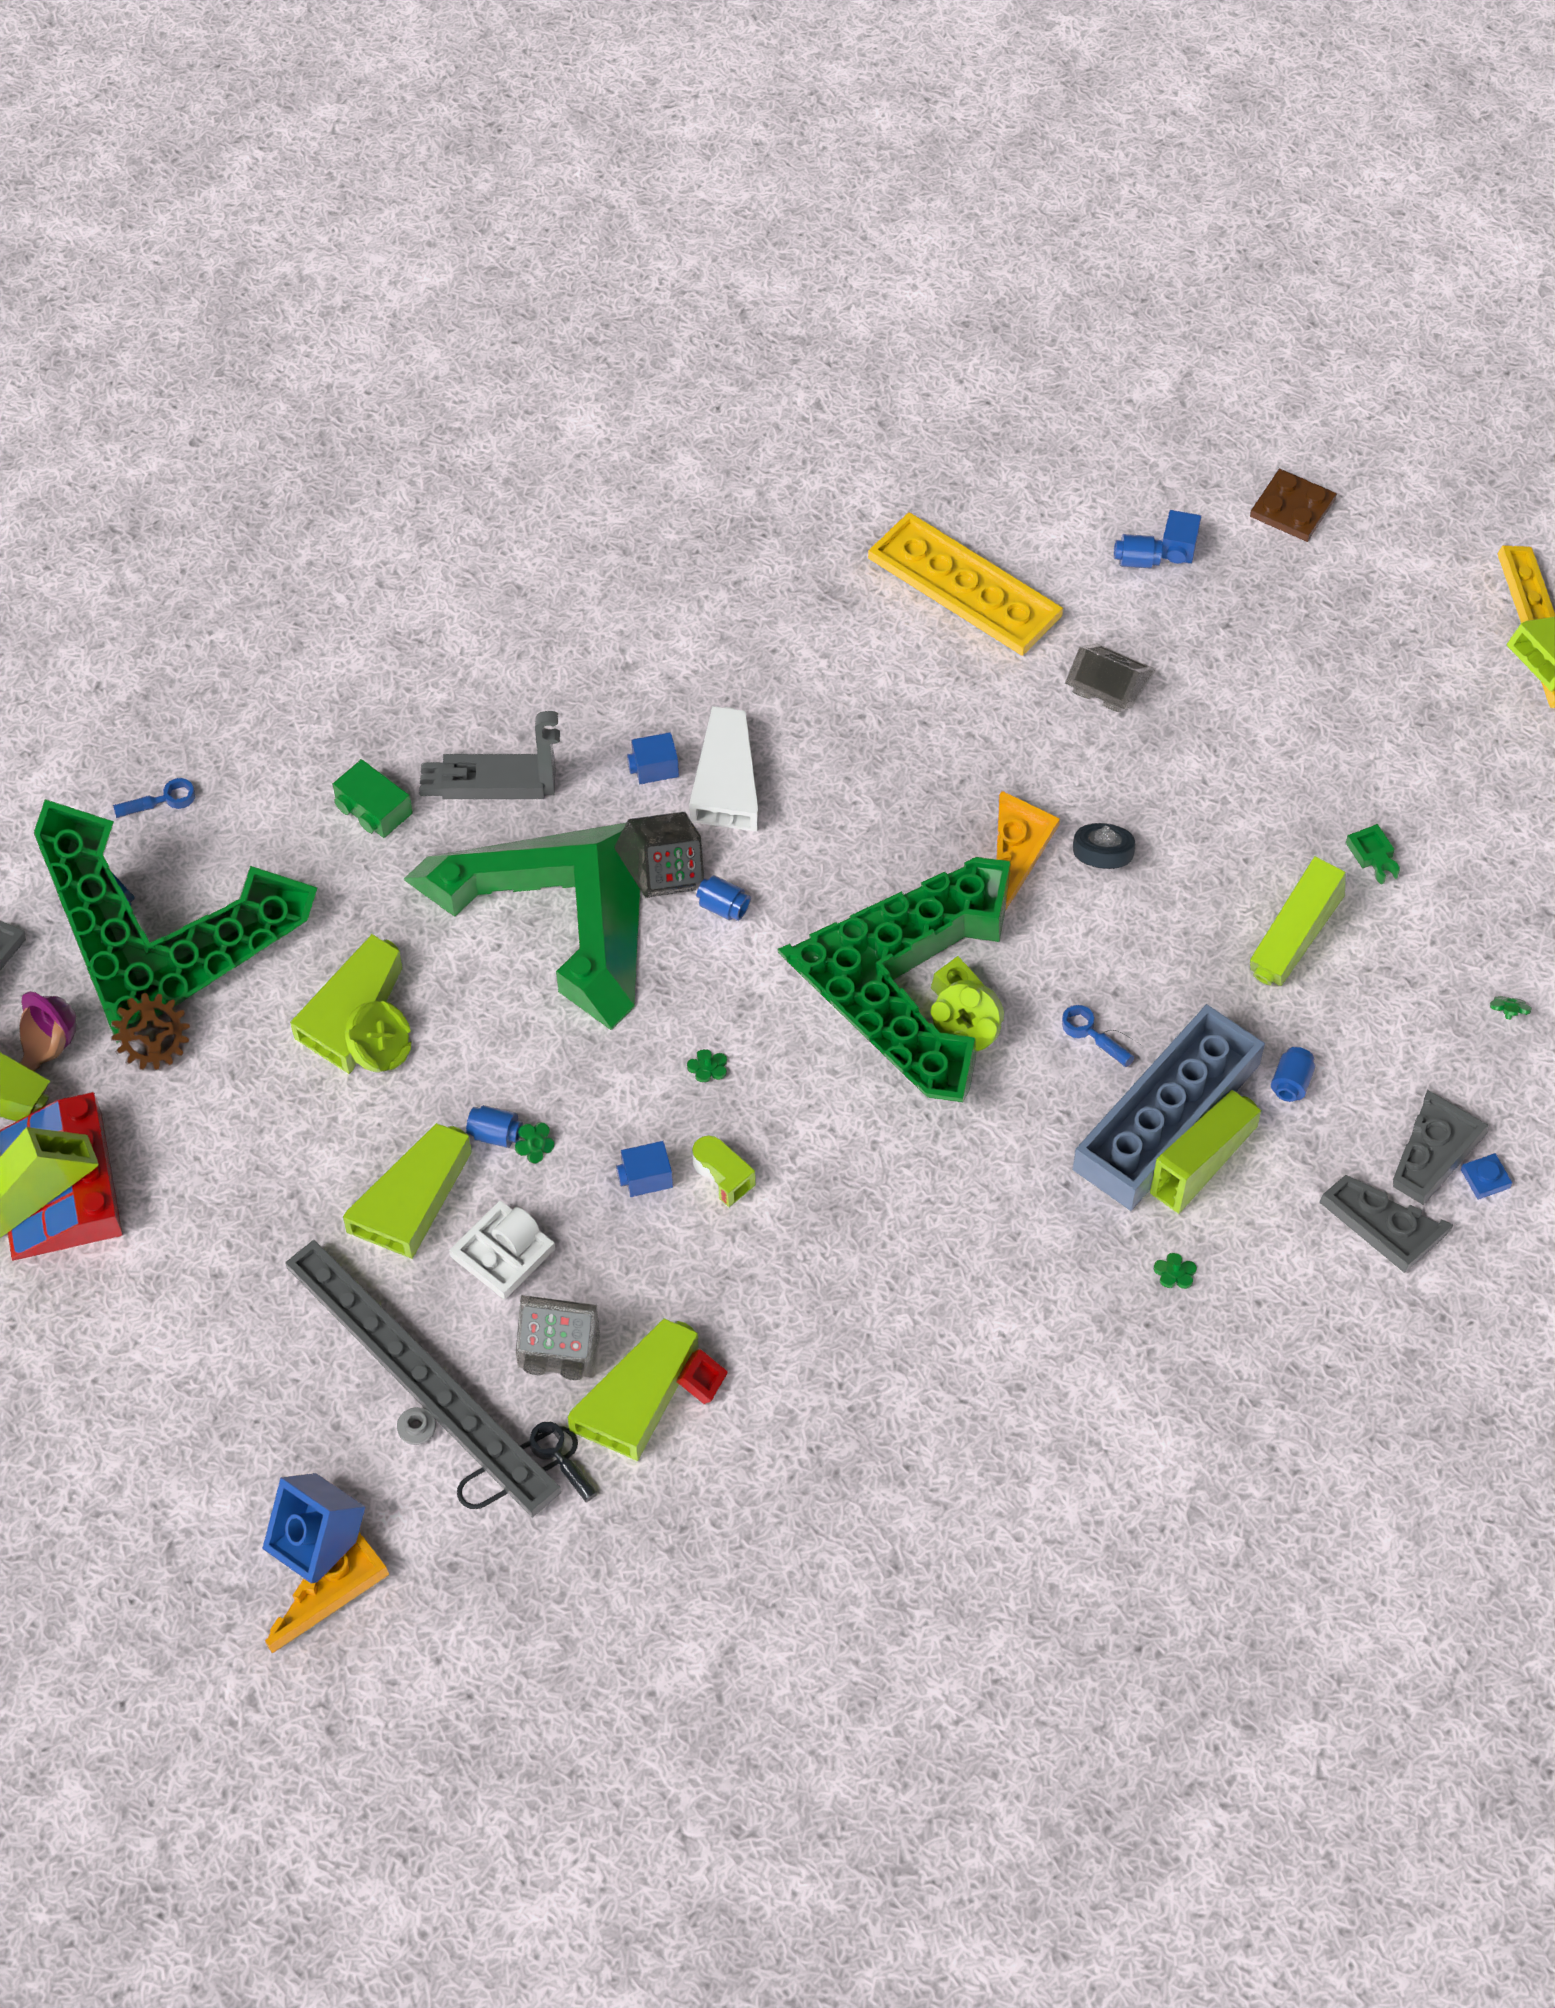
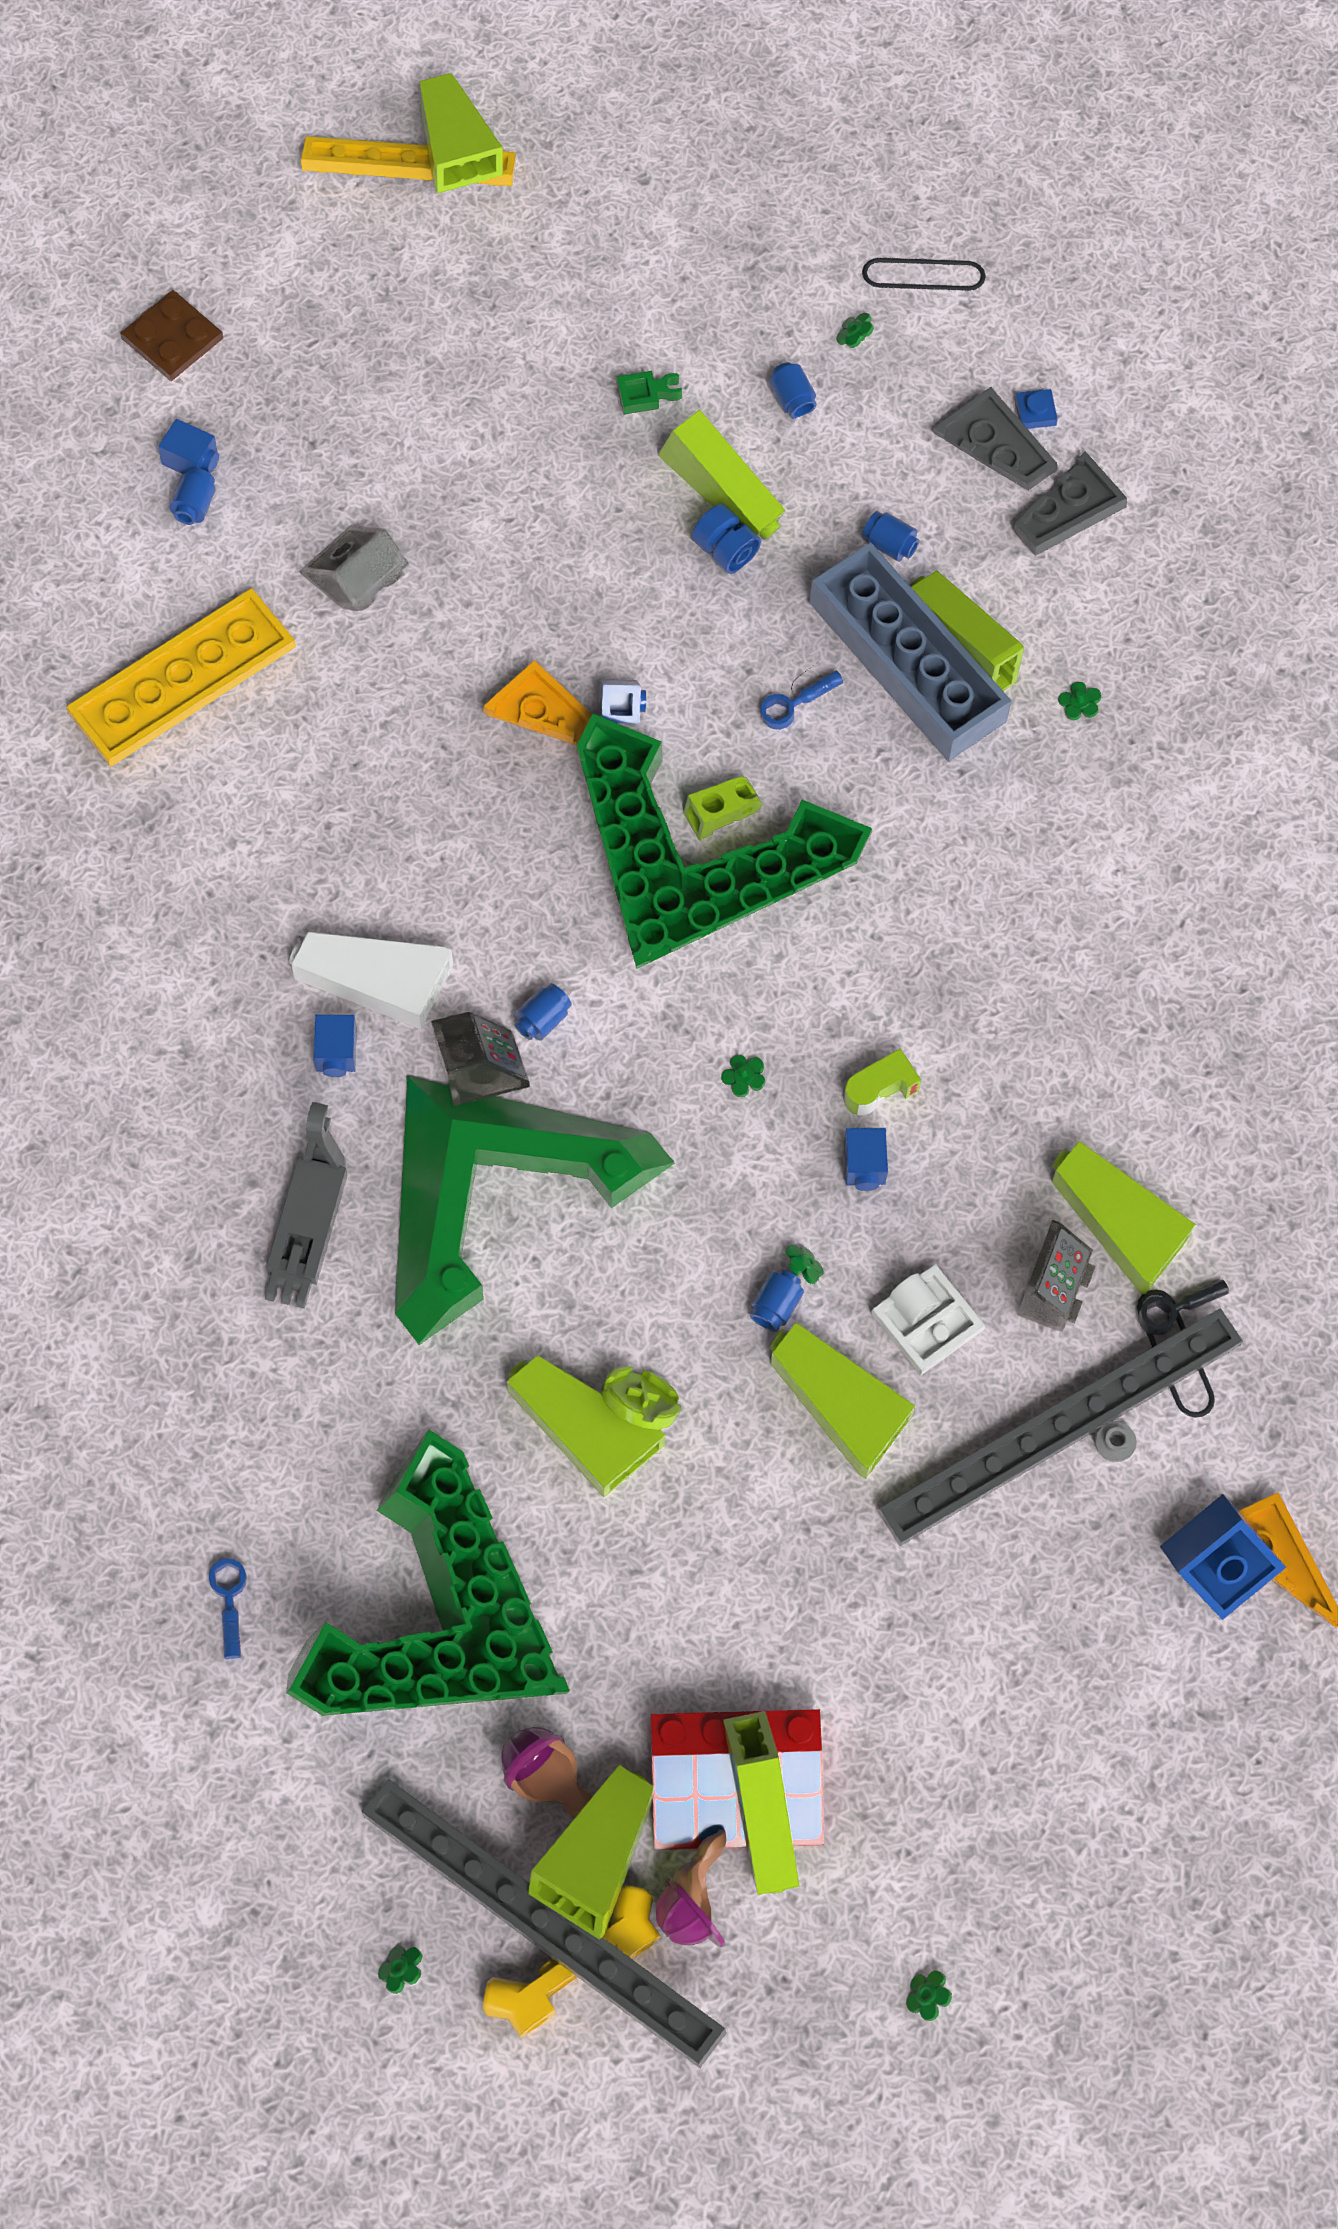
camera: 80 degrees left, 10 degrees up
(147, 1015) = (573, 1647): reddish brown gear -> none
(371, 799) = (306, 1357): green brick -> none
(702, 1376) = (1119, 1150): red plate -> none
(971, 997) = (778, 810): lime plate -> none
(1039, 888) = (621, 700): none -> brick
(1104, 845) = (576, 629): black wheel -> none
(1237, 940) = (723, 536): none -> blue wheel
(1422, 966) = (793, 389): none -> blue brick

